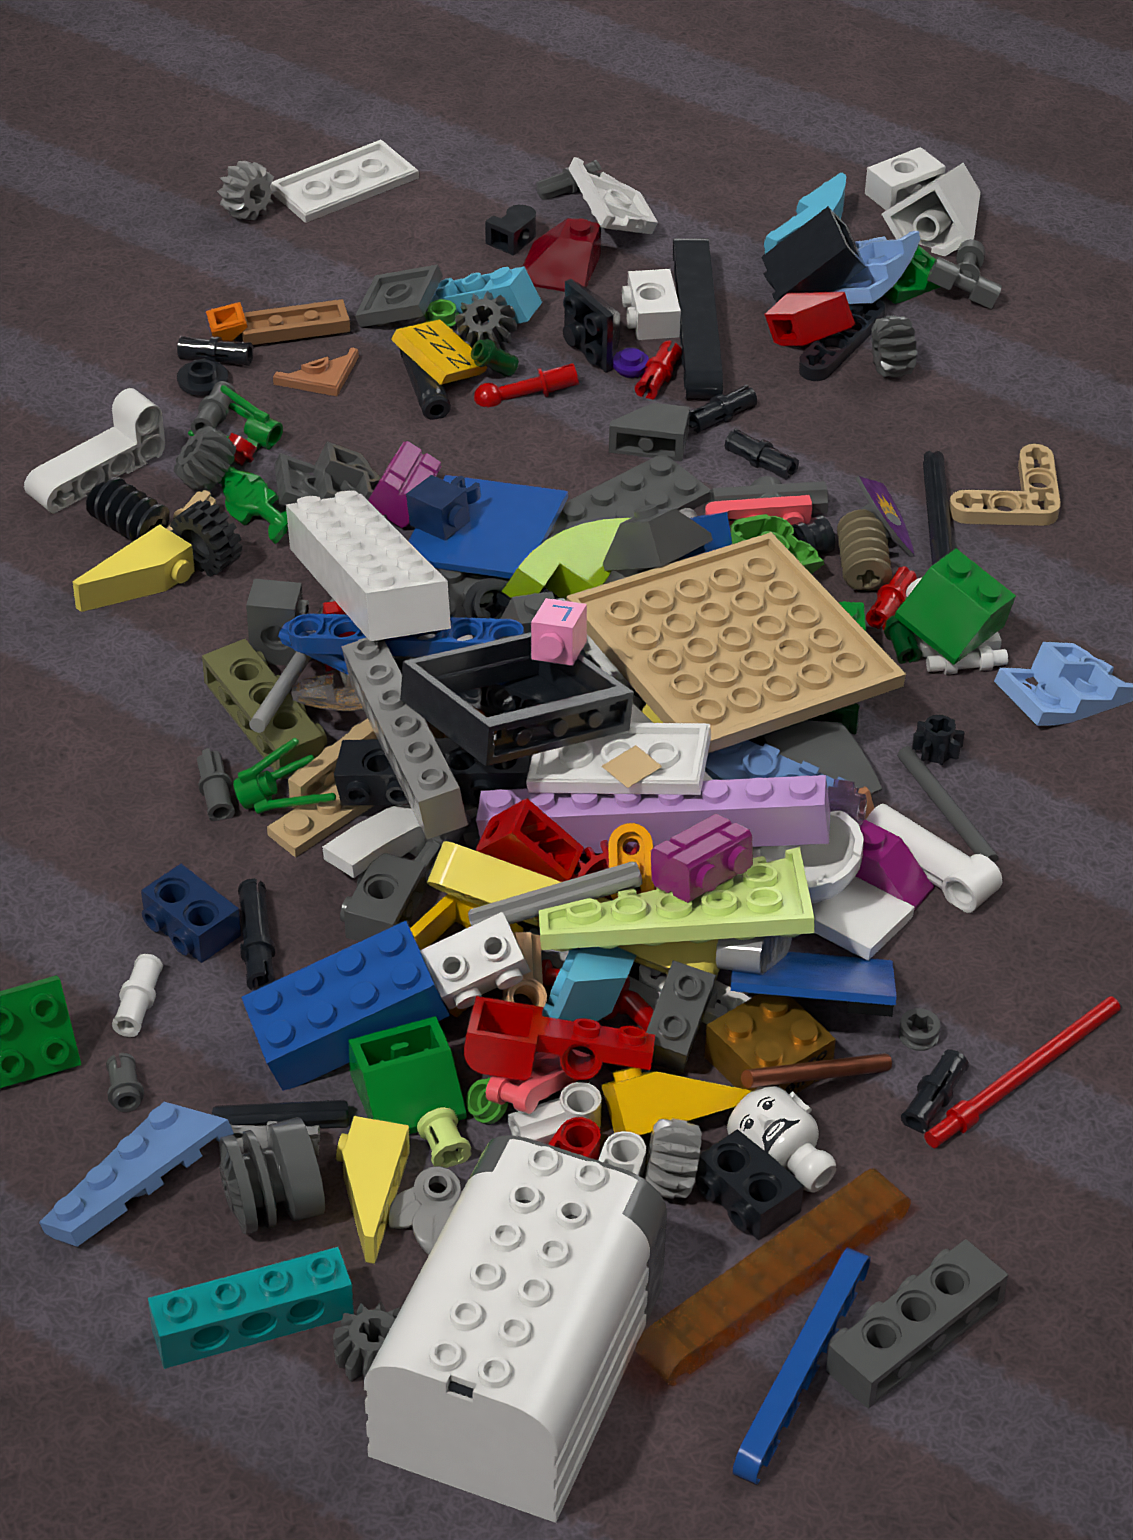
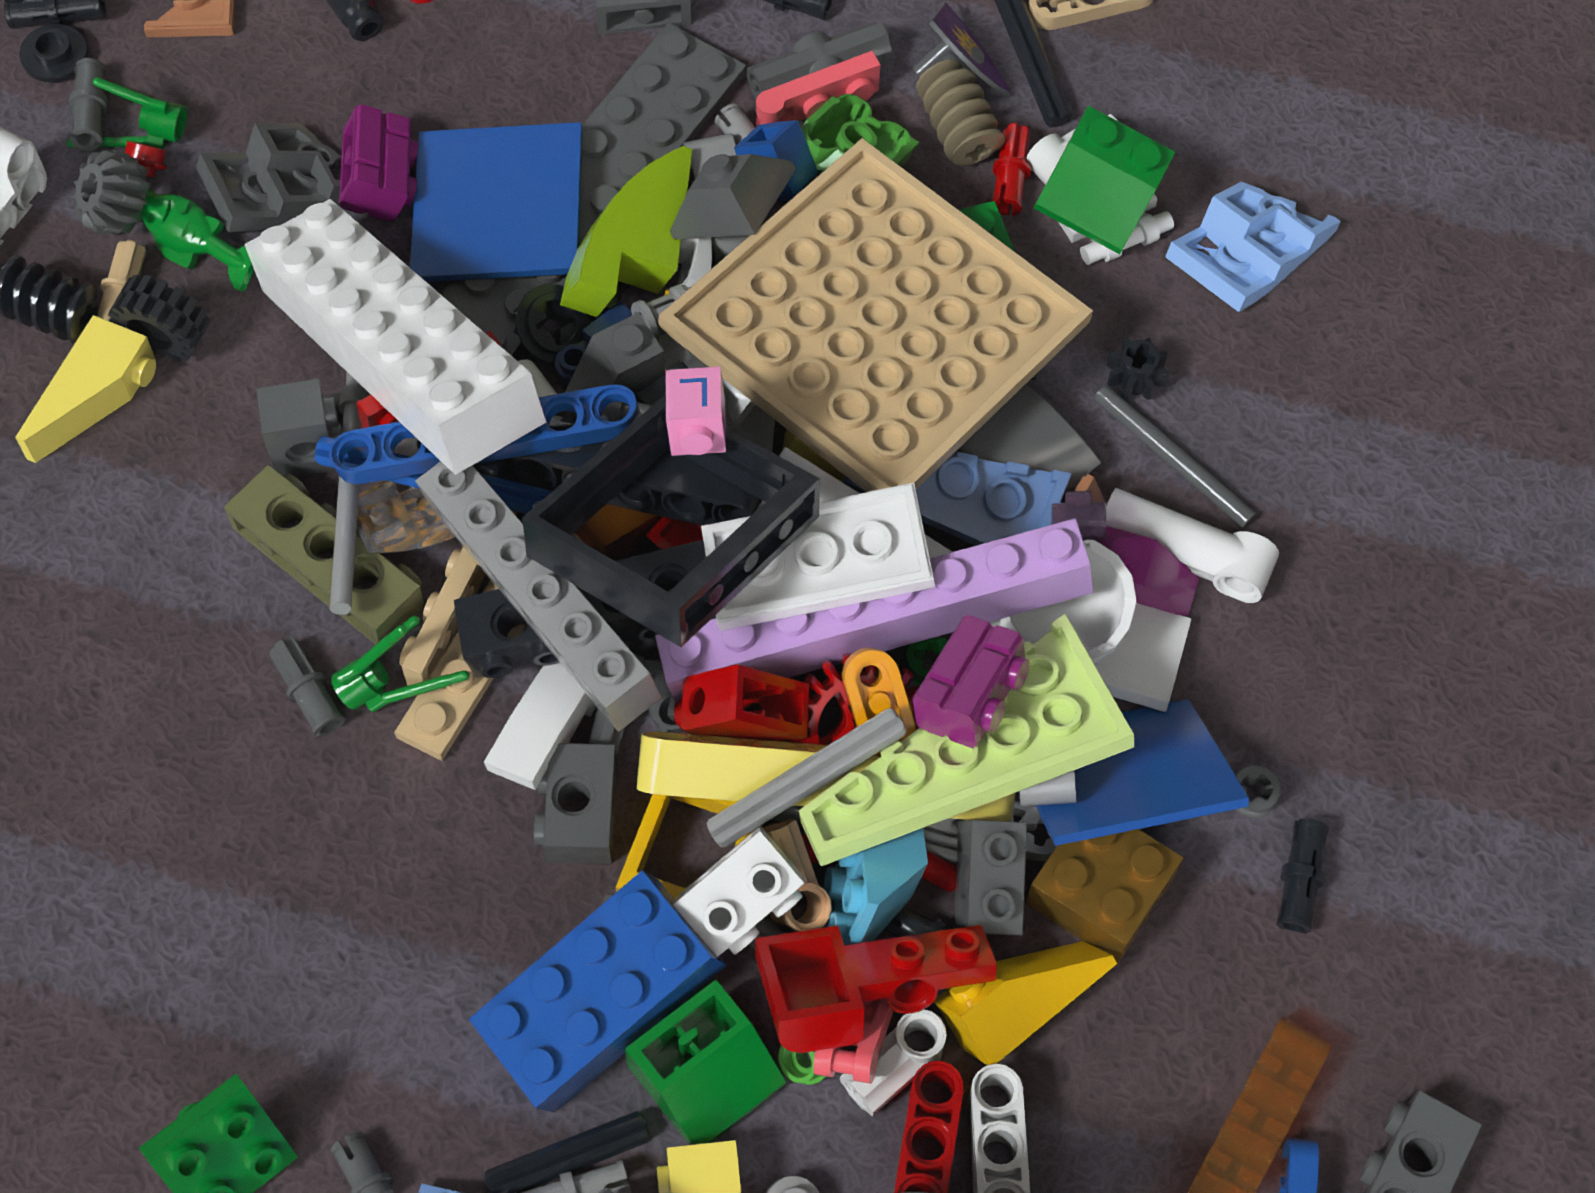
camera: 20 degrees left, 20 degrees up
(137, 995) = (330, 1036): white pin -> none
(190, 913) = (359, 886): dark blue brick -> none
(257, 945) = (449, 917): black pin -> none
(441, 506) = (440, 192): dark blue brick -> none
(444, 1137) = (774, 1129): yellowish green bush -> none
(631, 766) = (842, 573): tan sticker -> none
(673, 1157) = (1054, 1081): light grey gear -> none
(748, 1185) = (1153, 1069): black brick -> none
(785, 1131) = (1157, 1003): white piece -> none
(816, 533) = (894, 101): black wheel -> none
(816, 1070) = (1172, 906): copper bar -> none
(902, 640) = (1044, 229): dark green pin -> none
(966, 1113) = (1345, 895): red bar -> none

